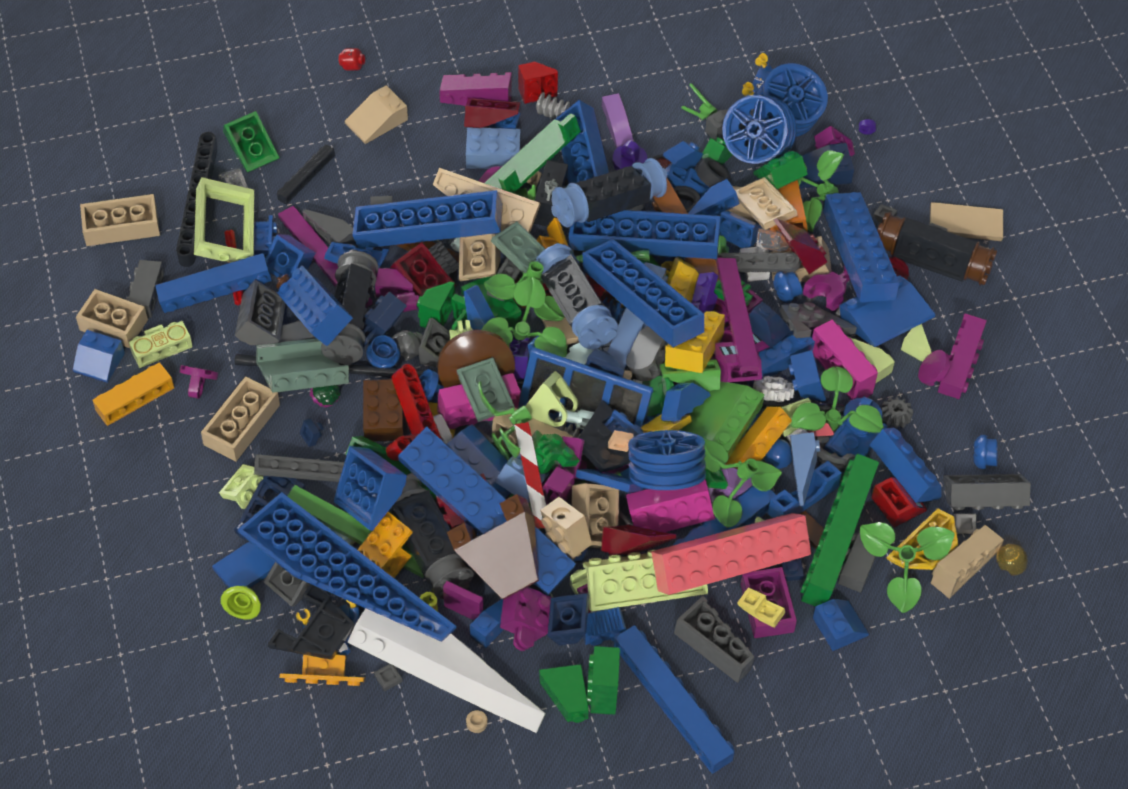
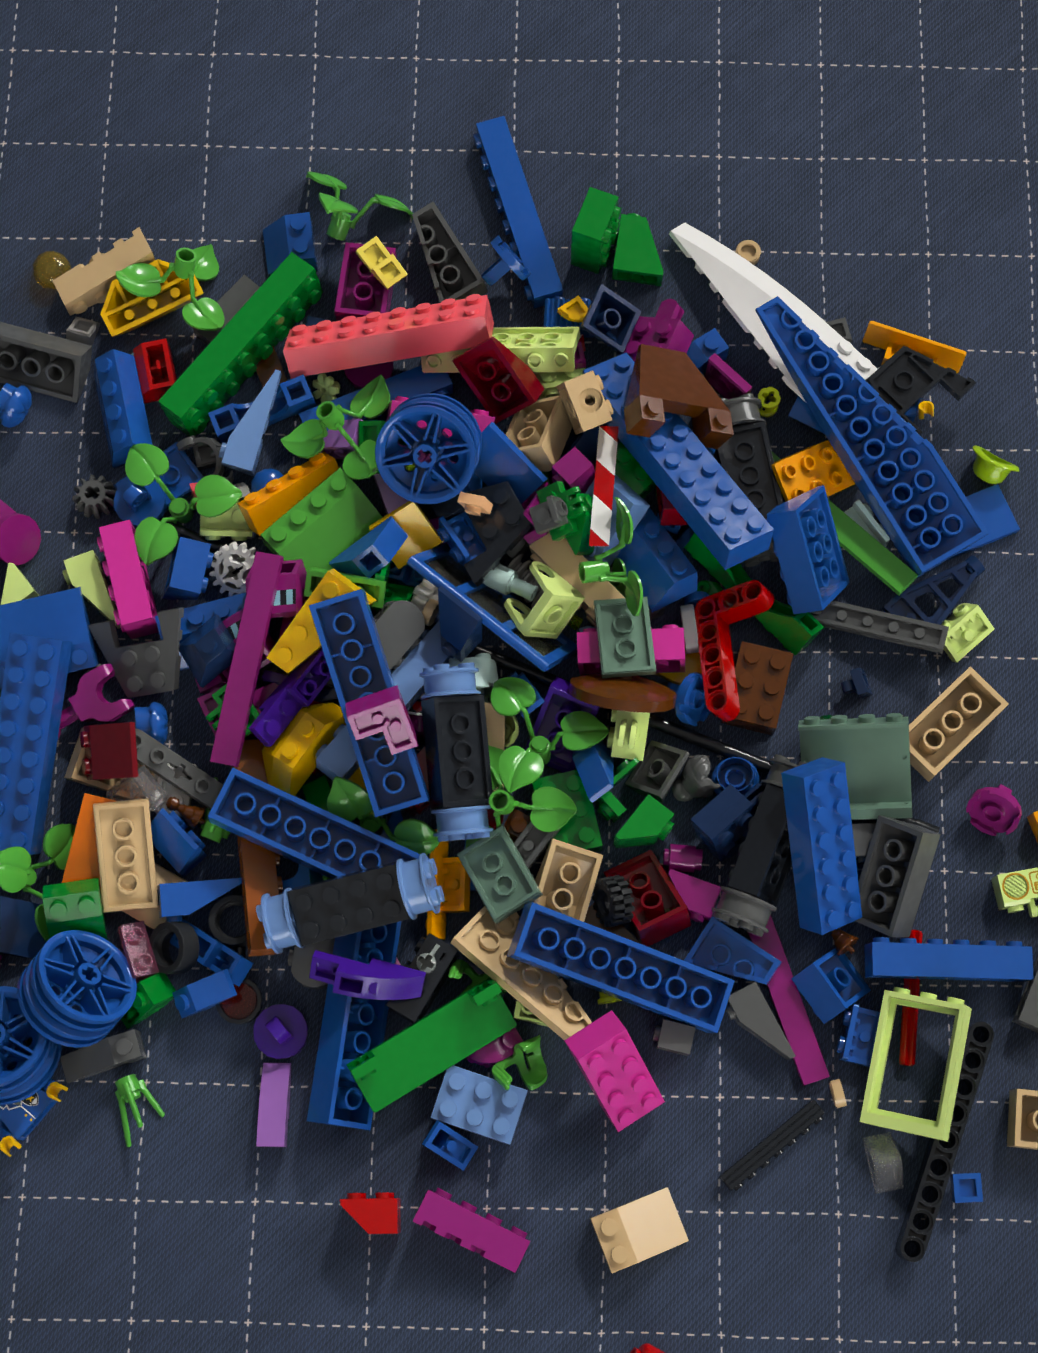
camera: 160 degrees left, 20 degrees up
(179, 176) = (966, 1187): none -> blue tile
(250, 142) = (845, 1231): green slope -> none
(270, 205) = (837, 1093): none -> tan tile
(414, 166) = (614, 1070): none -> dark pink brick
(474, 173) = (533, 1076): none -> bright green helmet
(485, 112) = (464, 1166): dark red slope -> none
(550, 108) = (361, 1159): light grey piece -> none
(563, 436) = (549, 514): none -> dark grey bracket
(576, 166) = (368, 981): none -> dark purple slope
(599, 621) = (573, 310): none -> yellow tile
(628, 275) = (385, 713): none -> panel
(663, 633) = (507, 261): none -> blue tile
(735, 167) = (138, 950): none -> clear pink bracket
(736, 246) = (191, 814): none -> reddish brown piece
(811, 630) = (340, 218): none -> bright green plant

